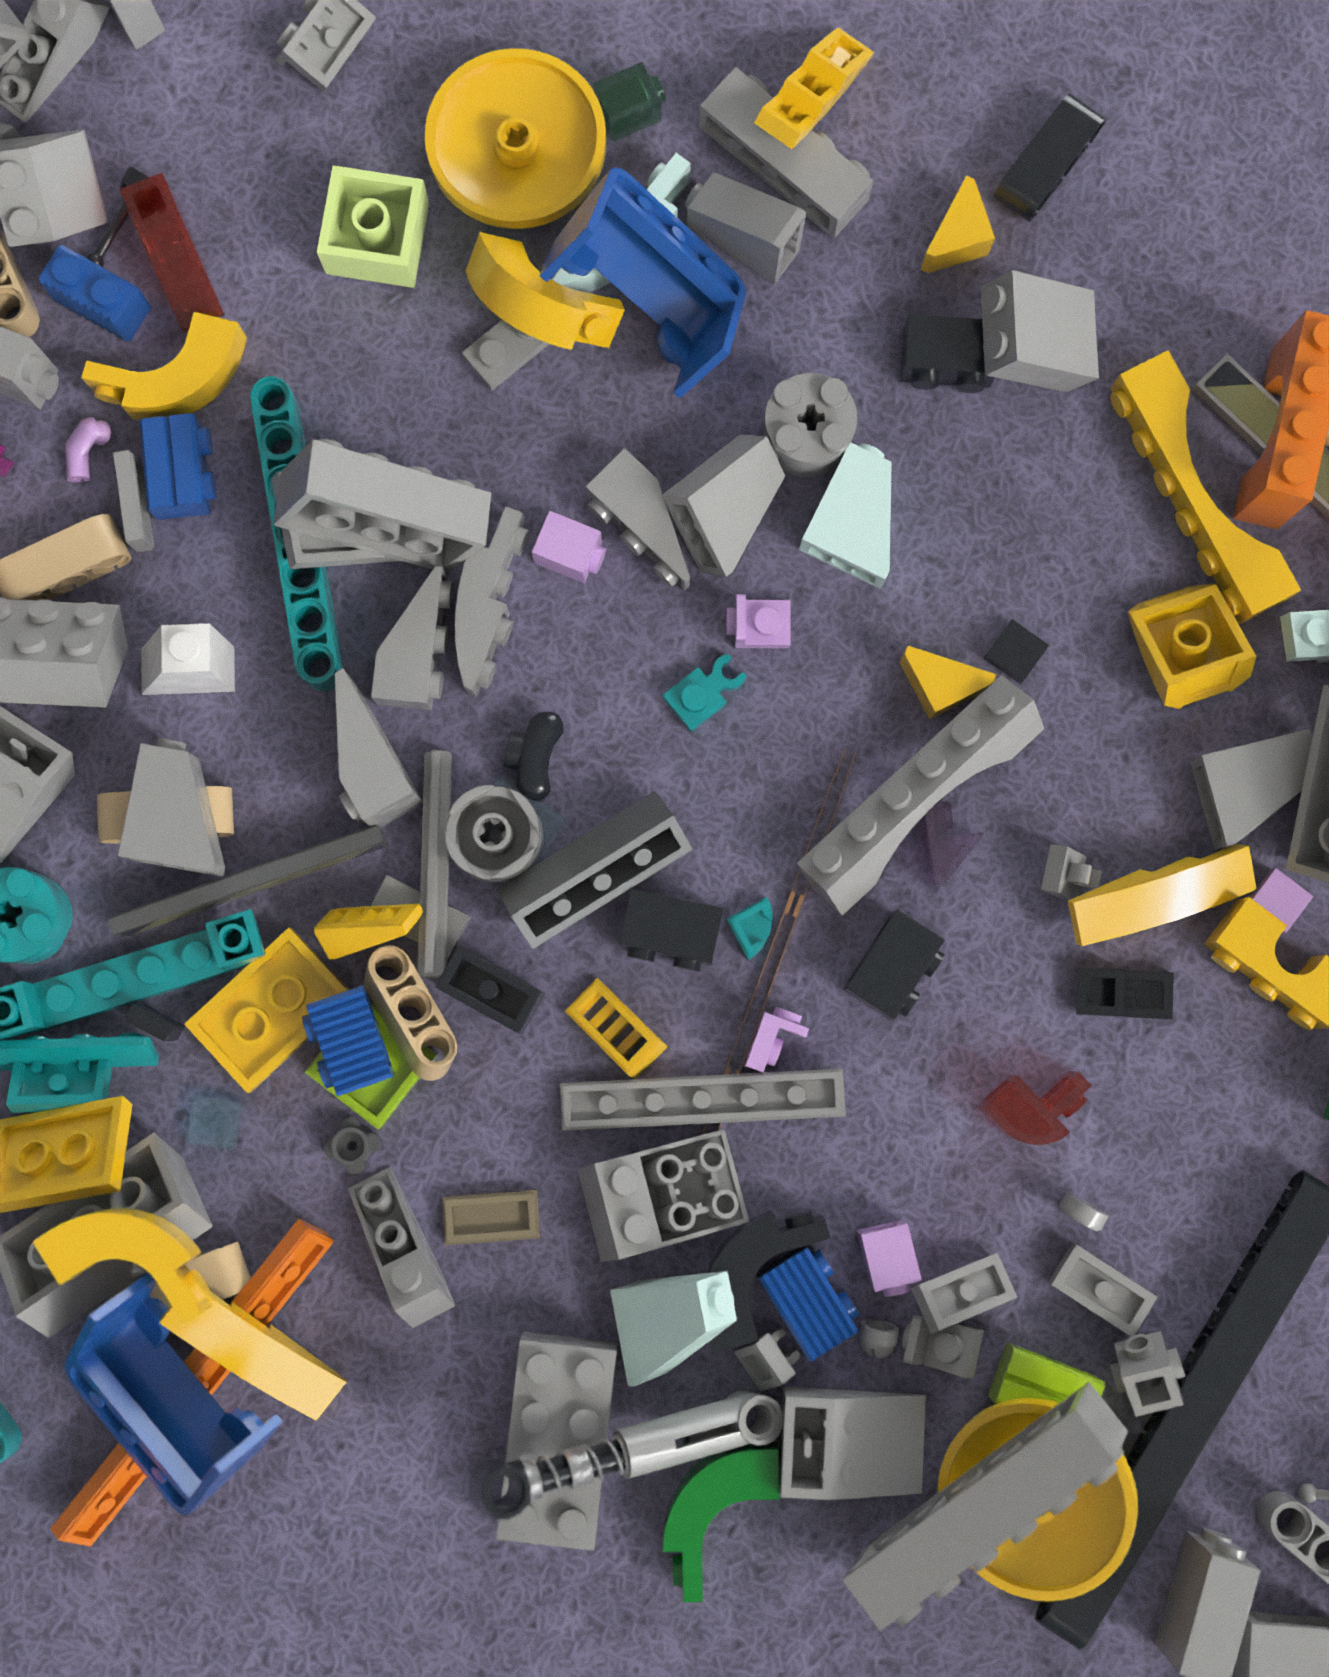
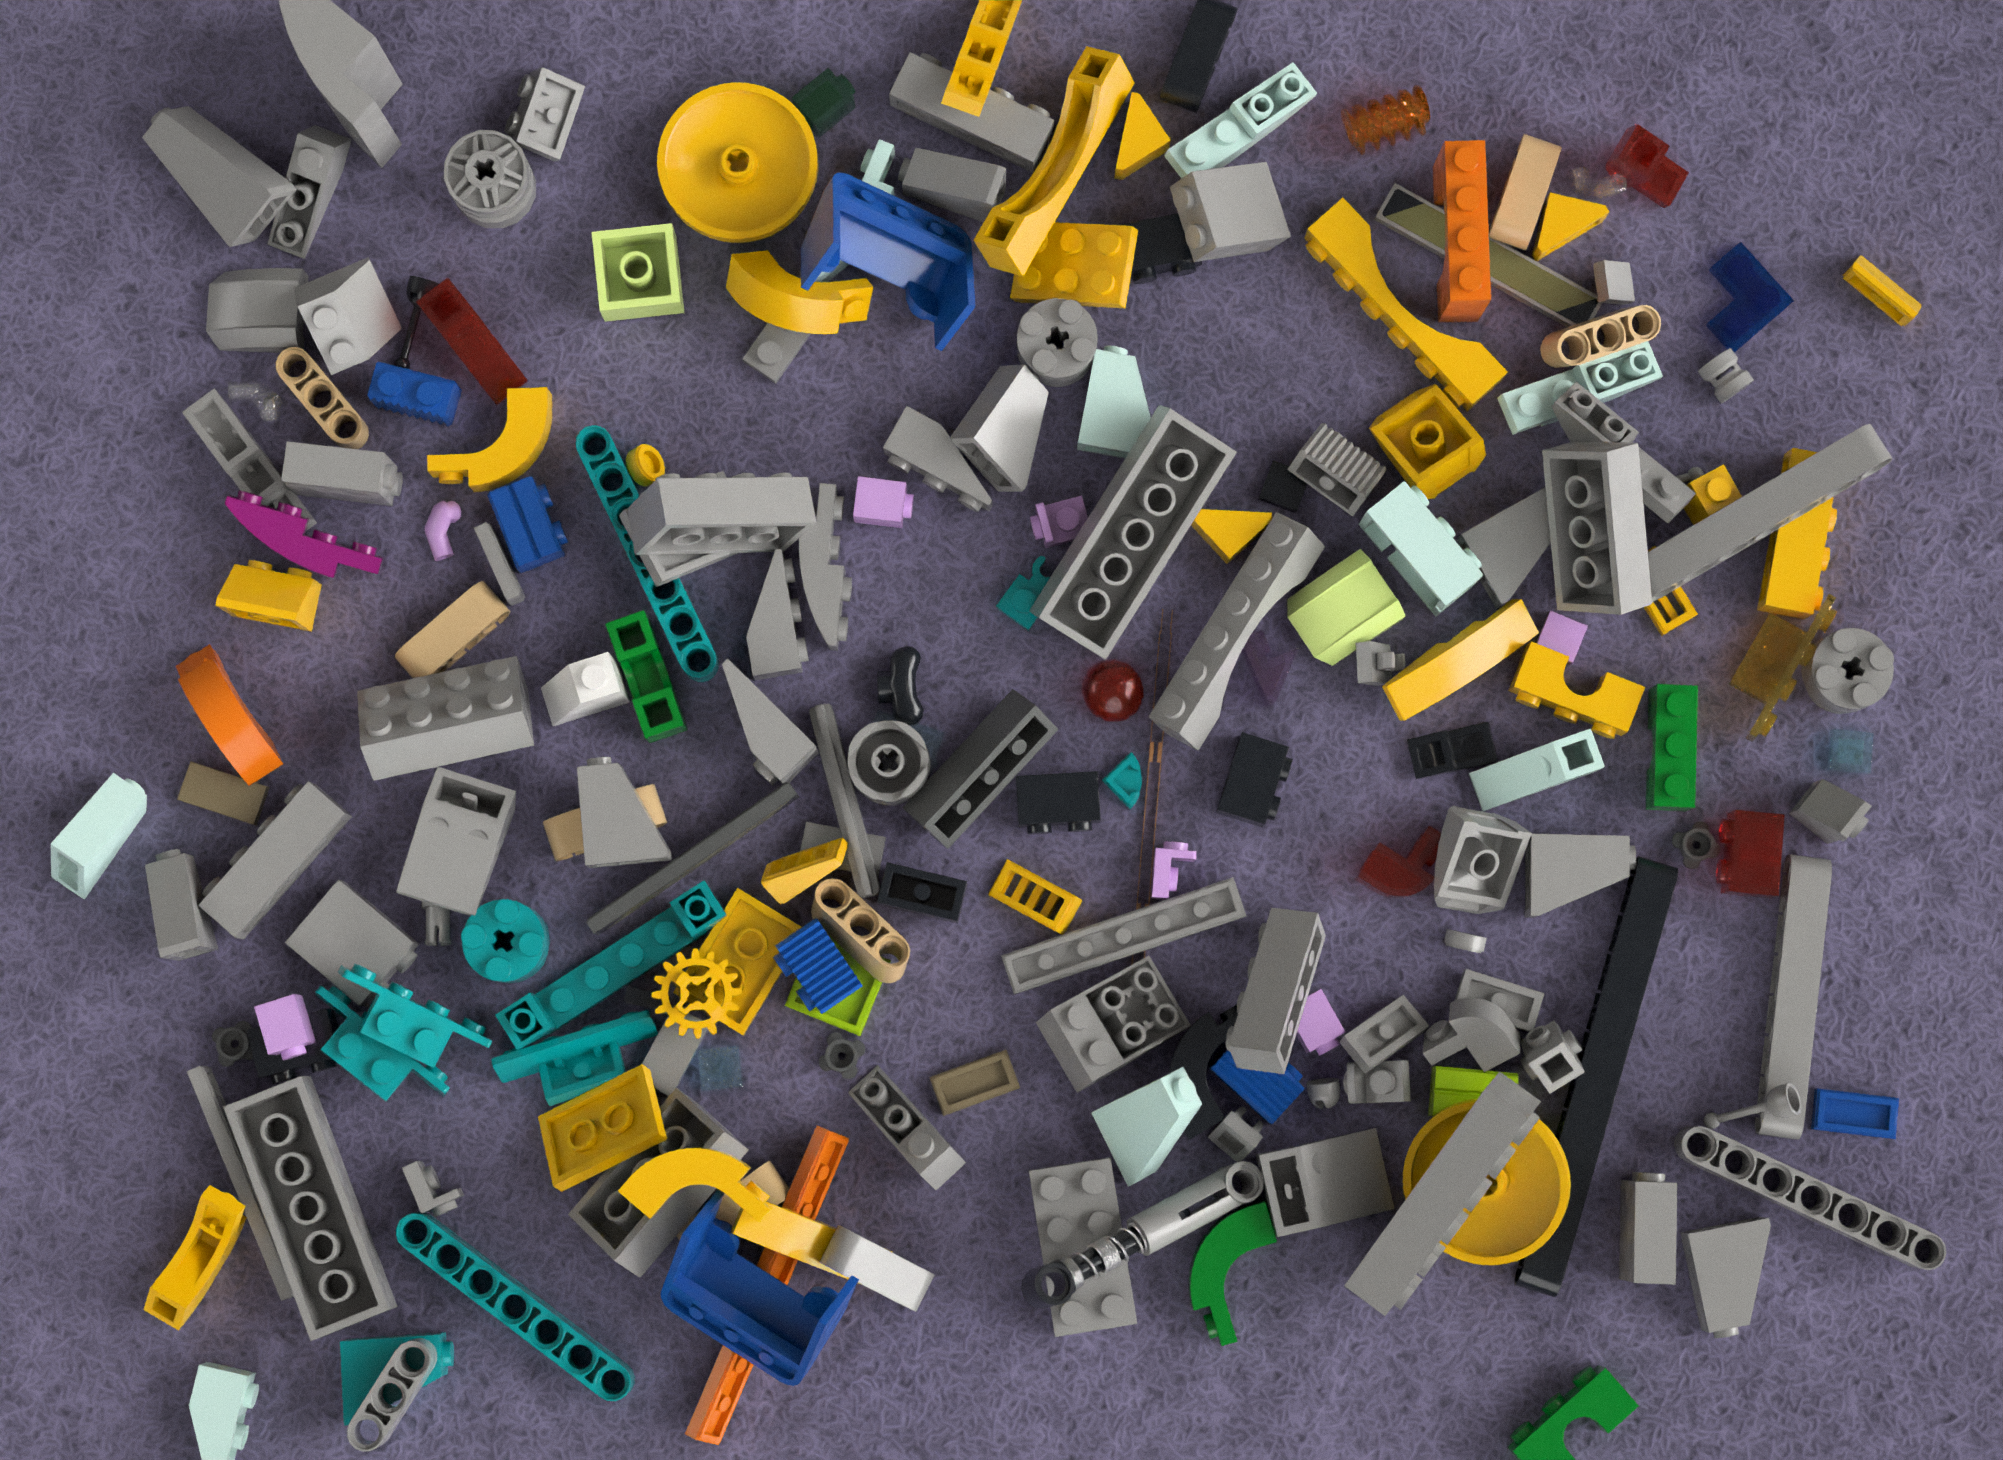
camera: 15 degrees left, 0 degrees up
(169, 1087) = (672, 1055): none -> light grey tile
(193, 1014) = (709, 1007): none -> yellow gear
(247, 106) = (496, 200): none -> light grey wheel
(256, 644) = (646, 676): none -> green arch
(318, 1401) = (877, 1268): none -> beam
(321, 427) = (644, 464): none -> yellow tile
(765, 823) = (1112, 690): none -> clear red hair
(803, 283) = (1091, 102): none -> yellow arch
(837, 651) = (1133, 531): none -> light grey brick
(854, 341) = (1081, 265): none -> yellow plate
(856, 1214) = (1276, 990): none -> light grey brick
(1047, 802) = (1343, 608): none -> yellowish green slope
(1072, 1316) = (1473, 1025): none -> light grey brick
(1081, 646) = (1337, 469): none -> light grey brick
(1082, 244) = (1243, 123): none -> light aqua slope
(1123, 1125) = (1477, 860): none -> light grey slope
(1161, 764) = (1424, 545): none -> light aqua piece
(1217, 1042) = (1537, 770): none -> light aqua slope
(1225, 1164) = (1572, 866): none -> light grey slope
(1238, 280) = (1387, 119): none -> clear orange piece

